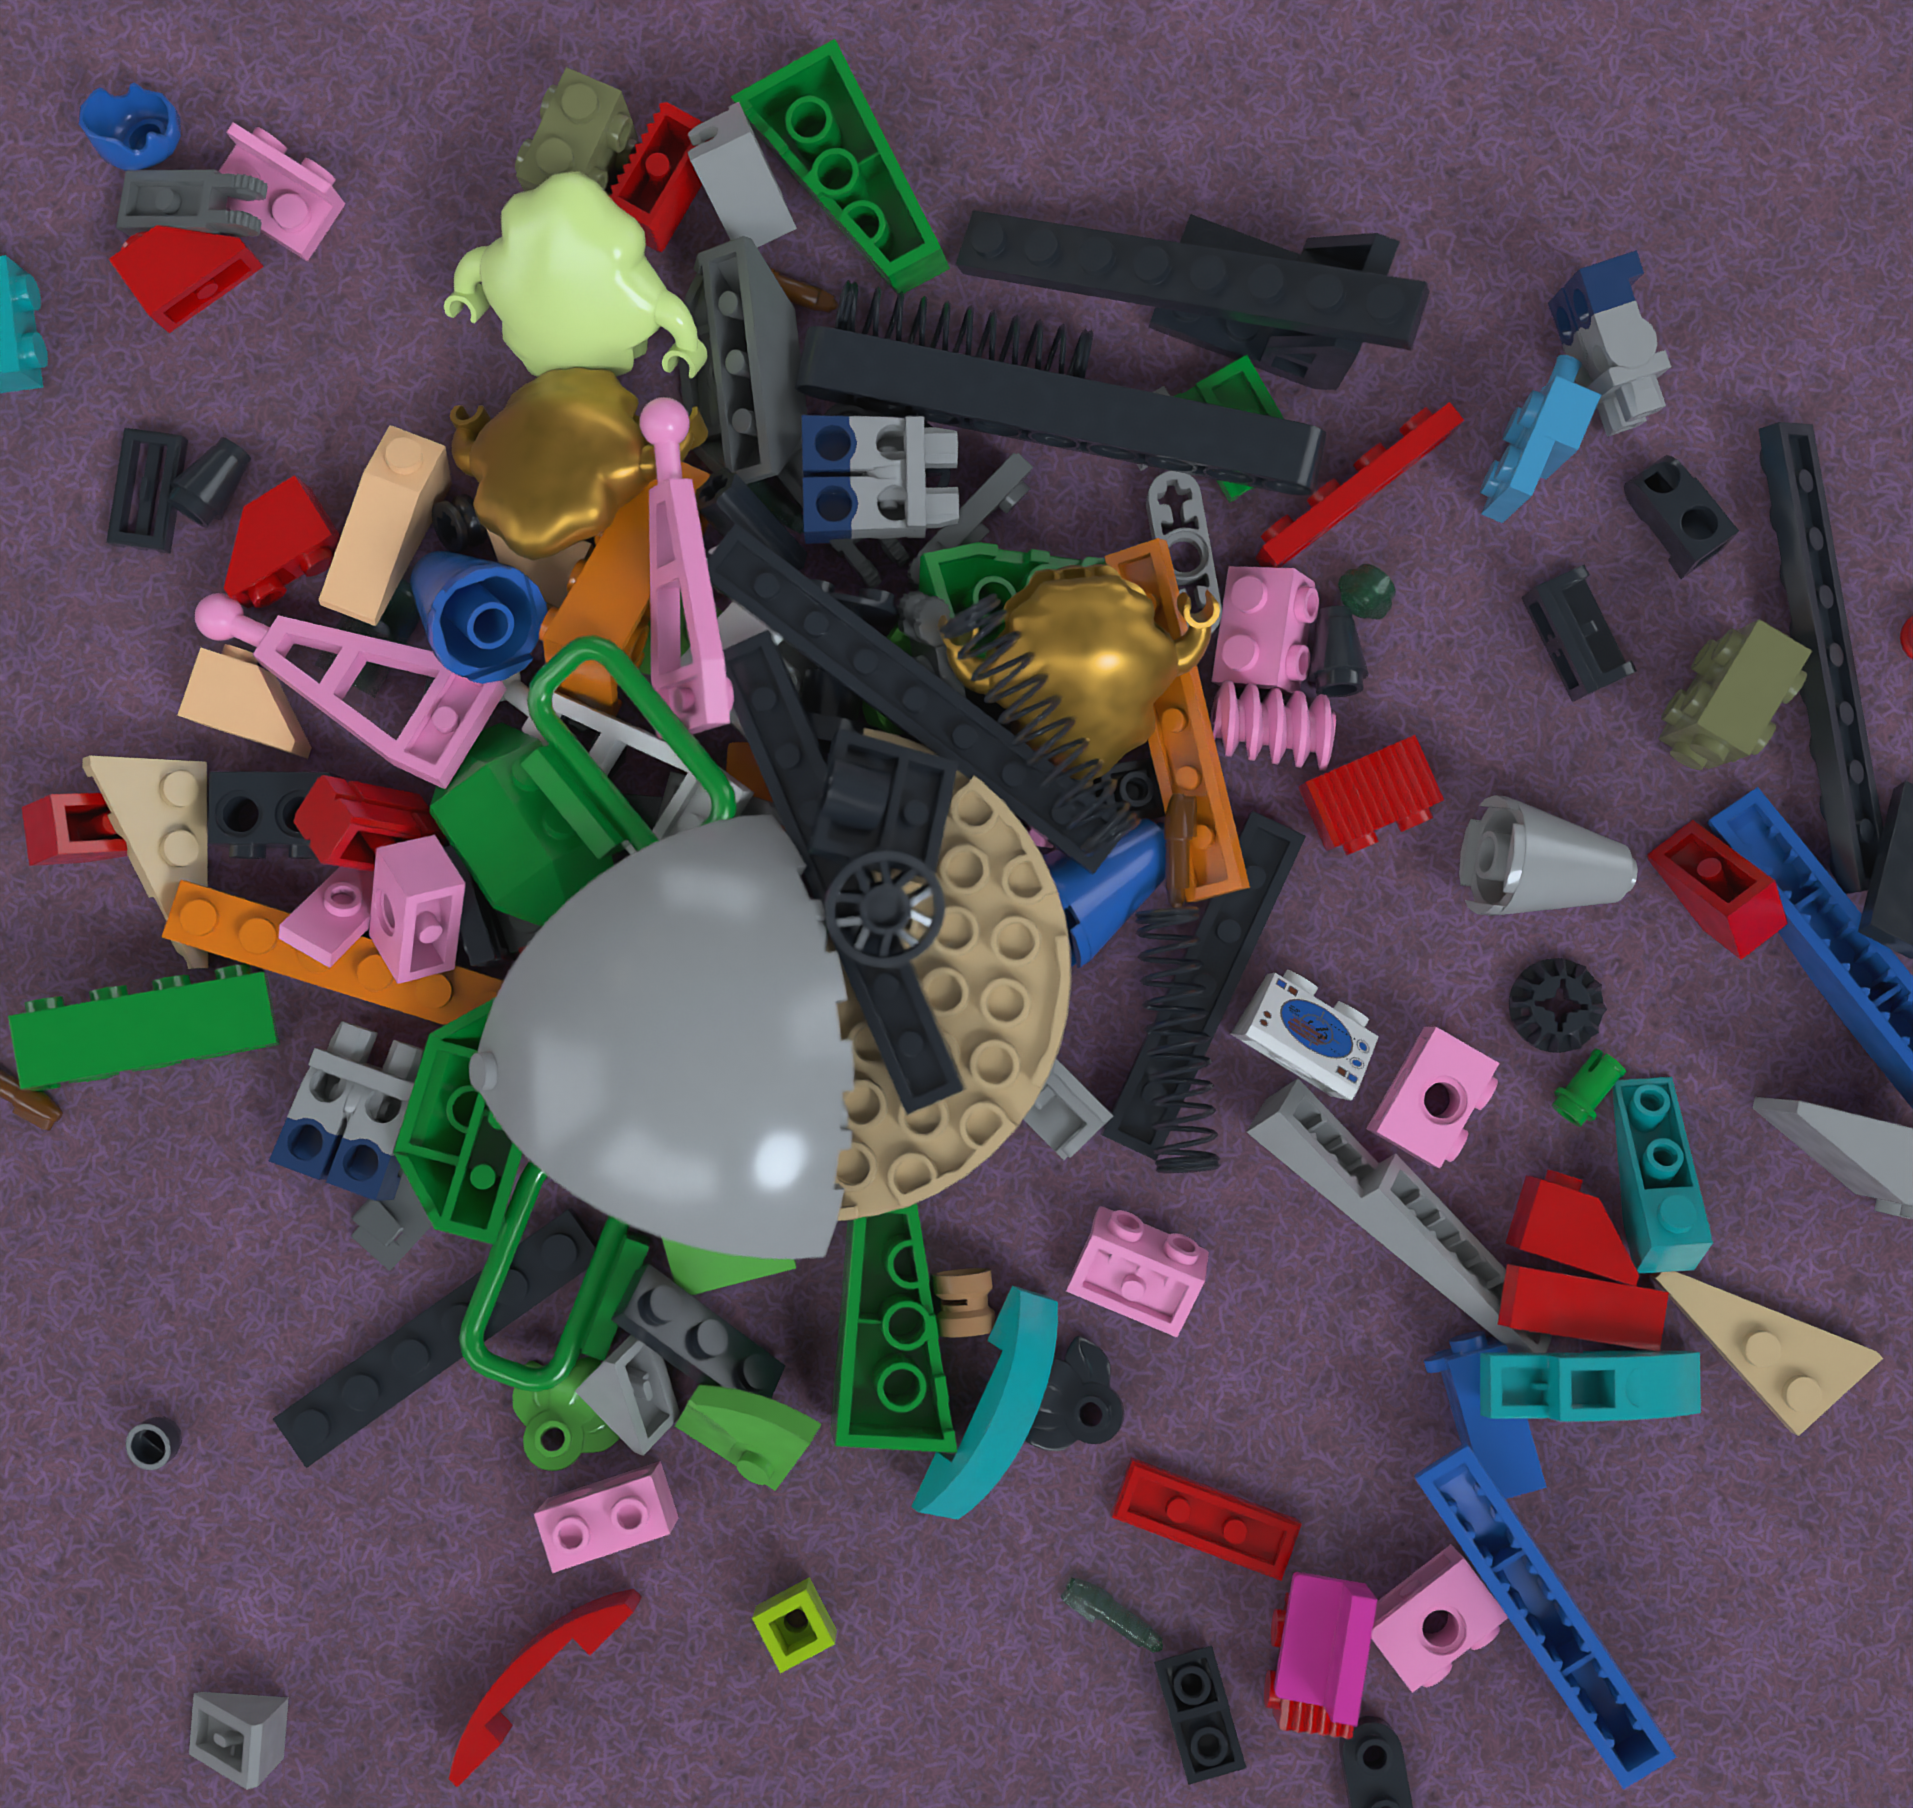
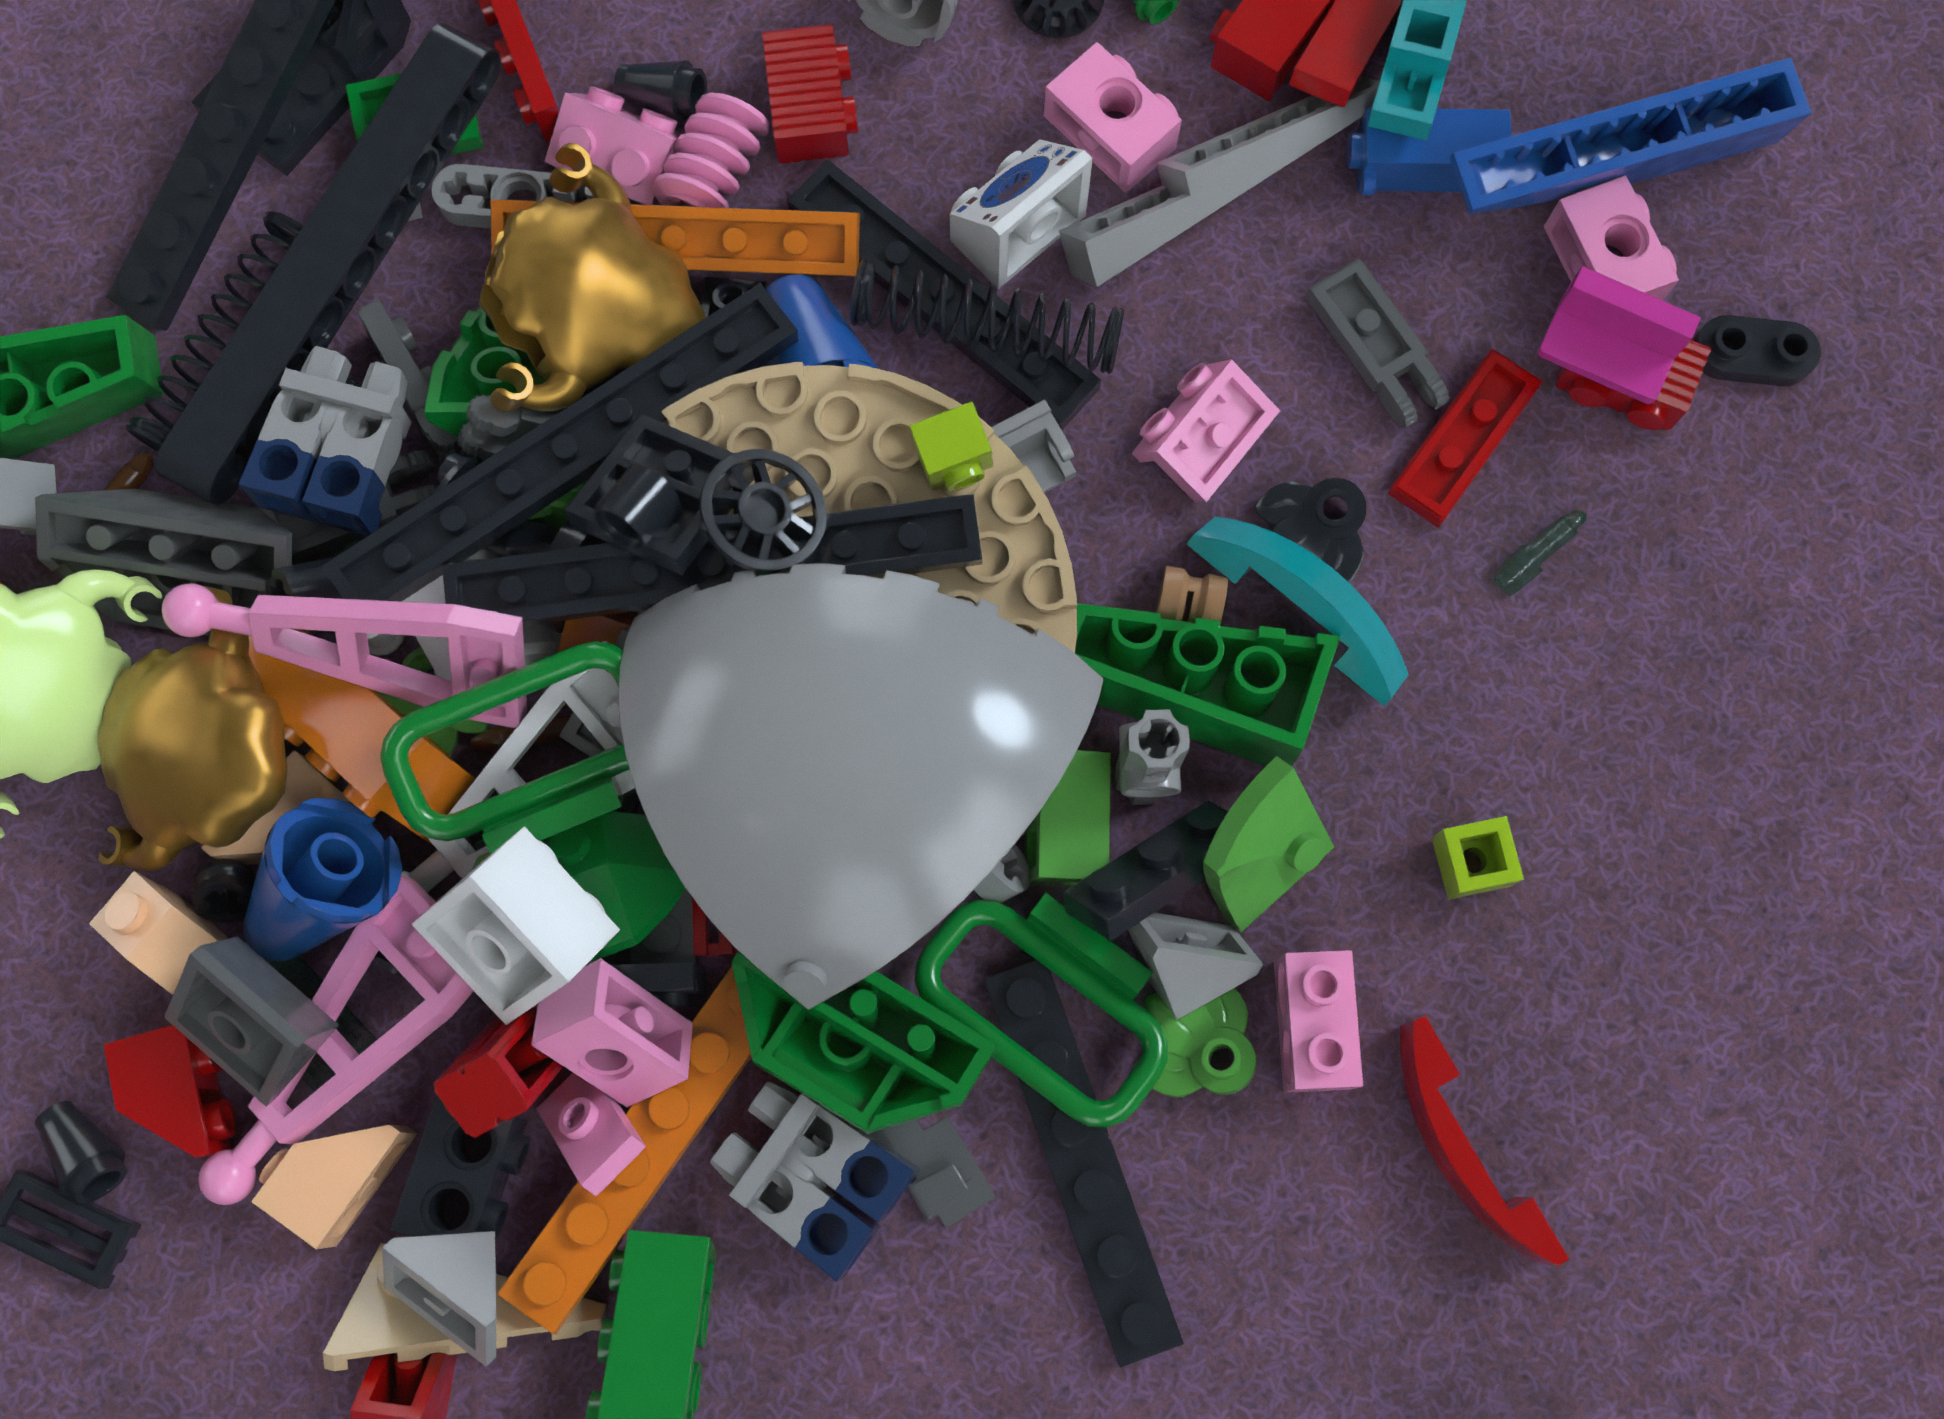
camera: 75 degrees left, 10 degrees down
(173, 842) = (449, 1285): none -> light grey slope
(341, 599) = (247, 1017): none -> dark grey slope
(466, 807) = (517, 926): none -> white slope
(785, 1311) = (1151, 757): none -> light grey piece
(966, 622) = (504, 370): black piece -> none
(1001, 1058) = (953, 448): none -> lime plate
(1179, 829) = (783, 258): reddish brown piece -> none
(1200, 1715) = (1657, 496): black slope -> none
(1278, 1409) = (1376, 340): none -> dark grey hinge
(1367, 591) = (612, 43): clear green plate -> none

